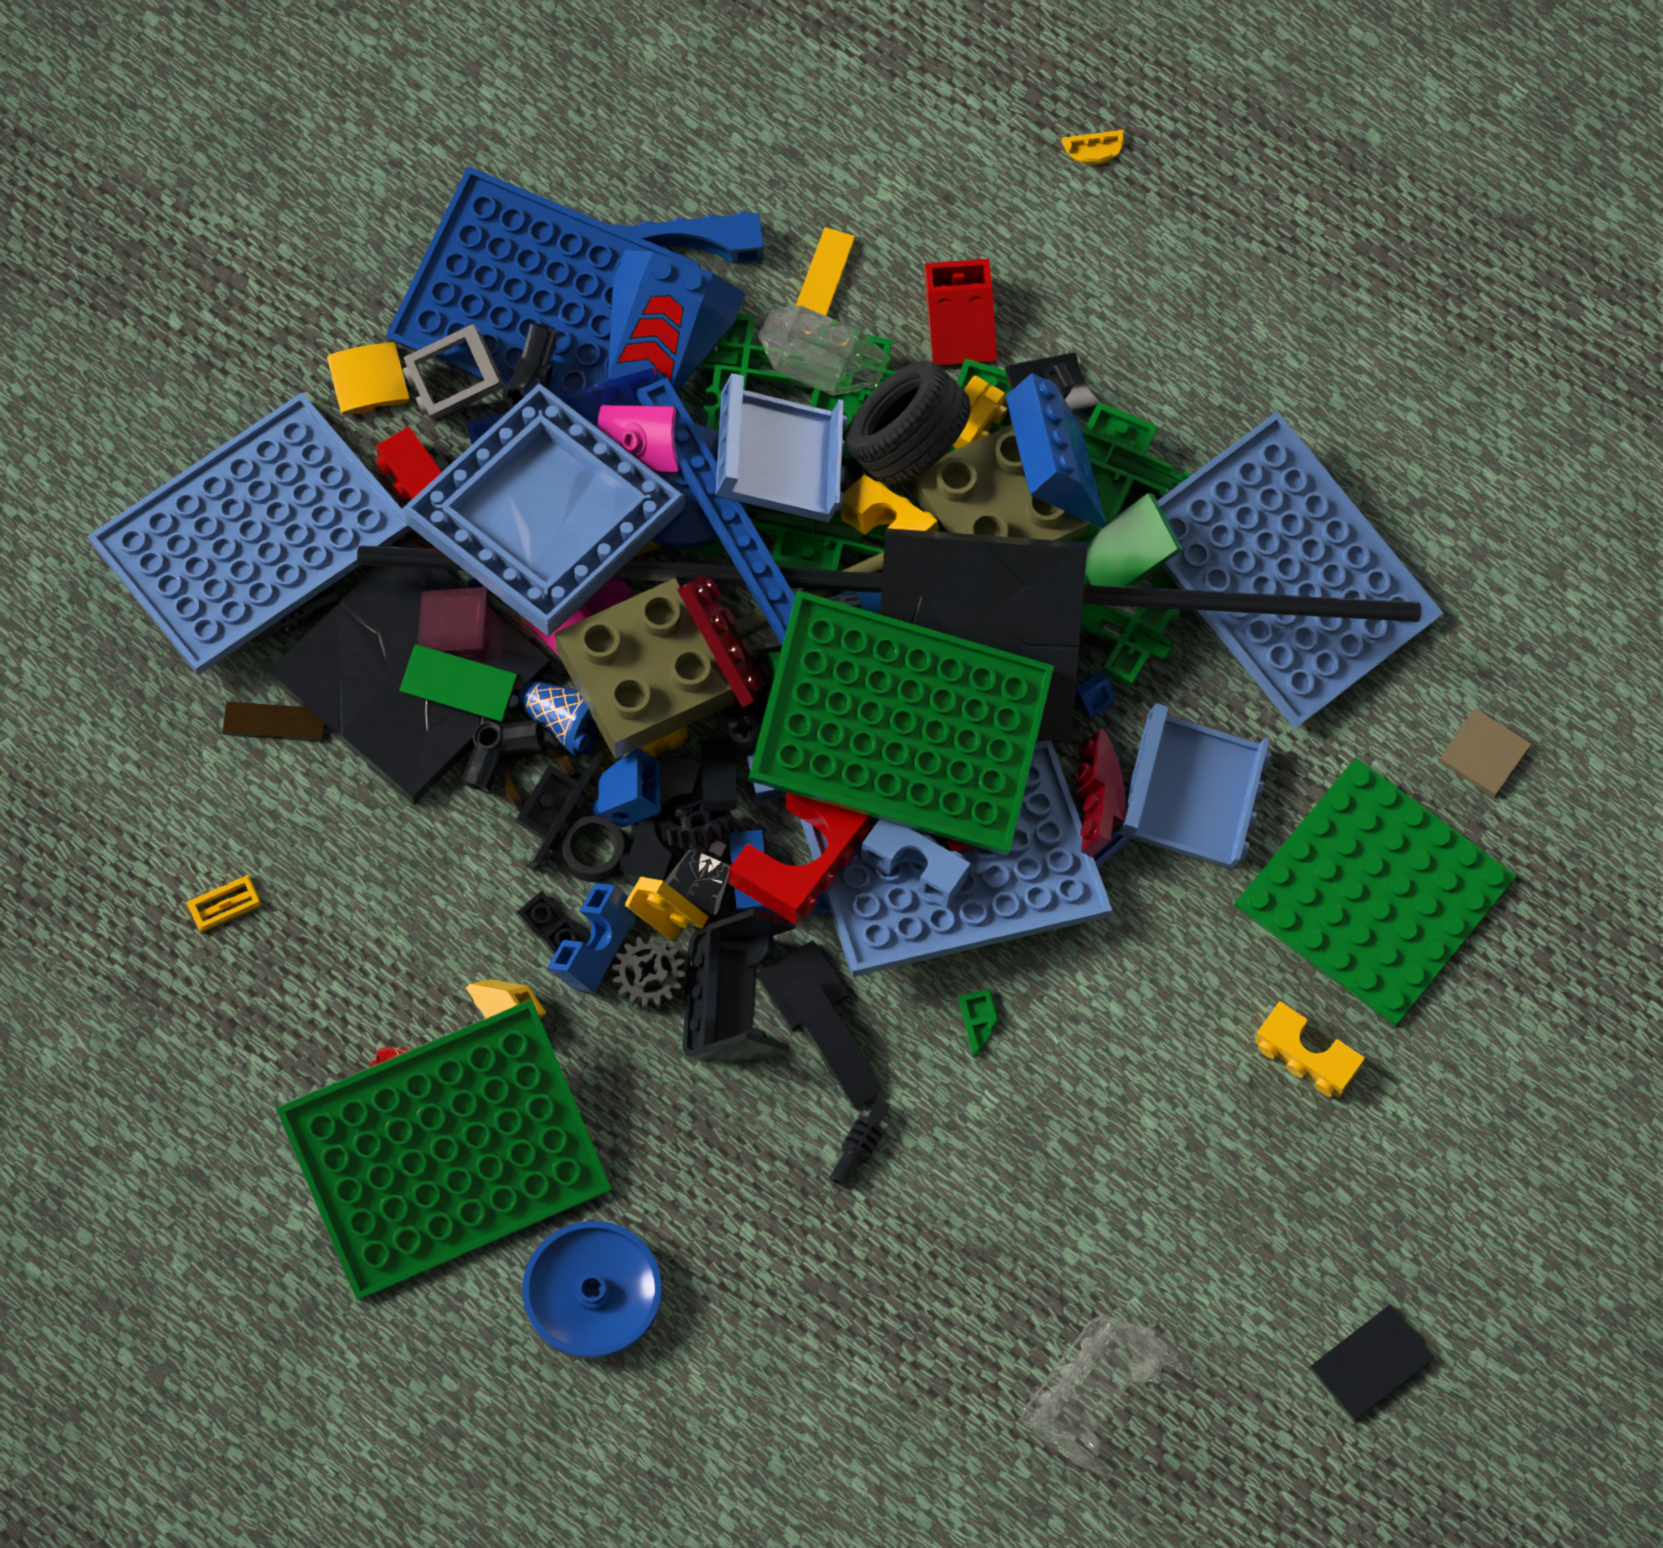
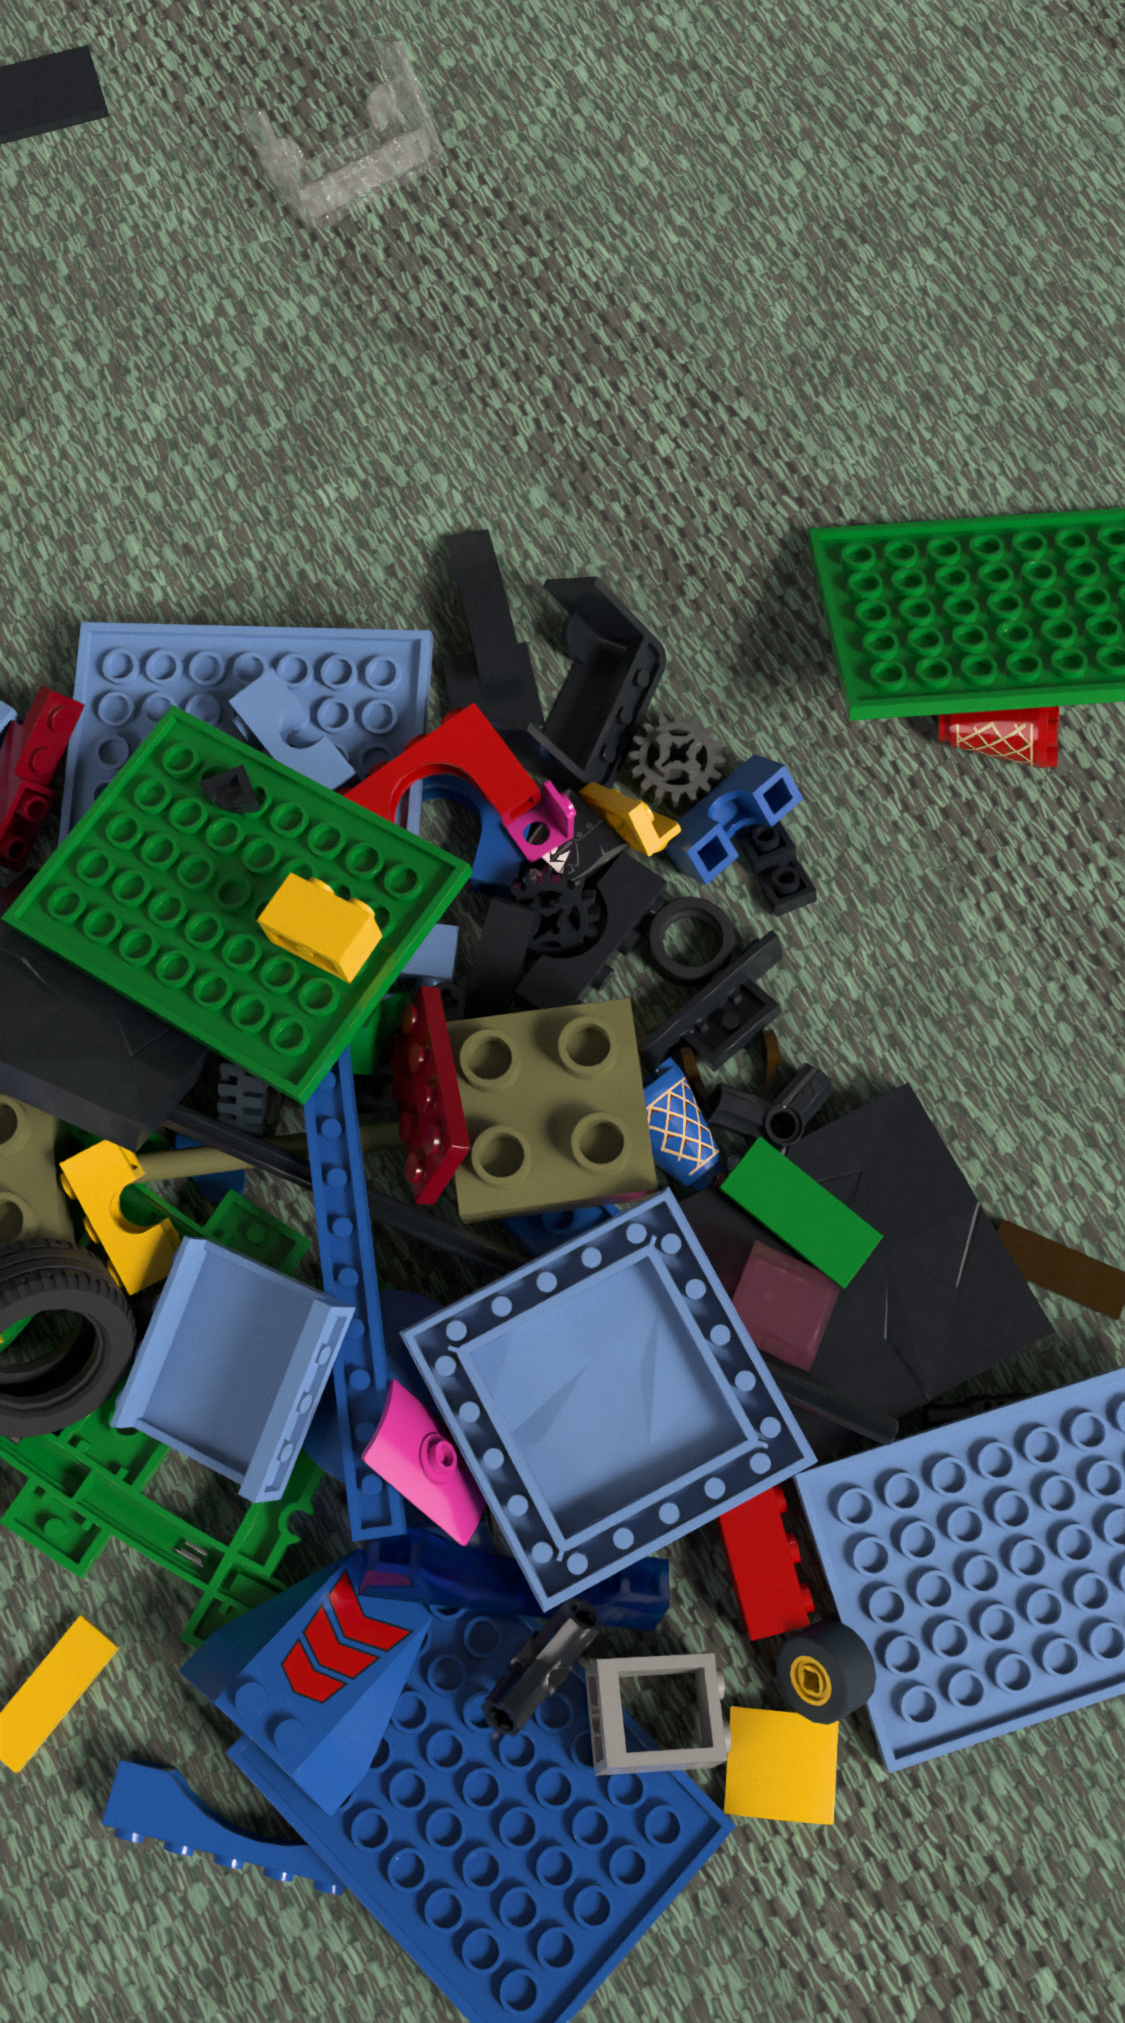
camera: 160 degrees left, 5 degrees up
(357, 427) = (826, 1671): none -> black wheel
(495, 996) = (868, 775): yellow slope -> none
(592, 1290) = (870, 419): blue dish -> none
(629, 790) = (623, 969): blue torso -> none
(715, 882) = (555, 813): none -> dark pink bracket
(821, 351) = (113, 1533): clear wedge -> none
(826, 692) = (321, 926): none -> yellow brick
(860, 1143) = (495, 489): black hinge -> none
(934, 789) = (232, 791): none -> black tile
(978, 1017) = (298, 585): green tile -> none

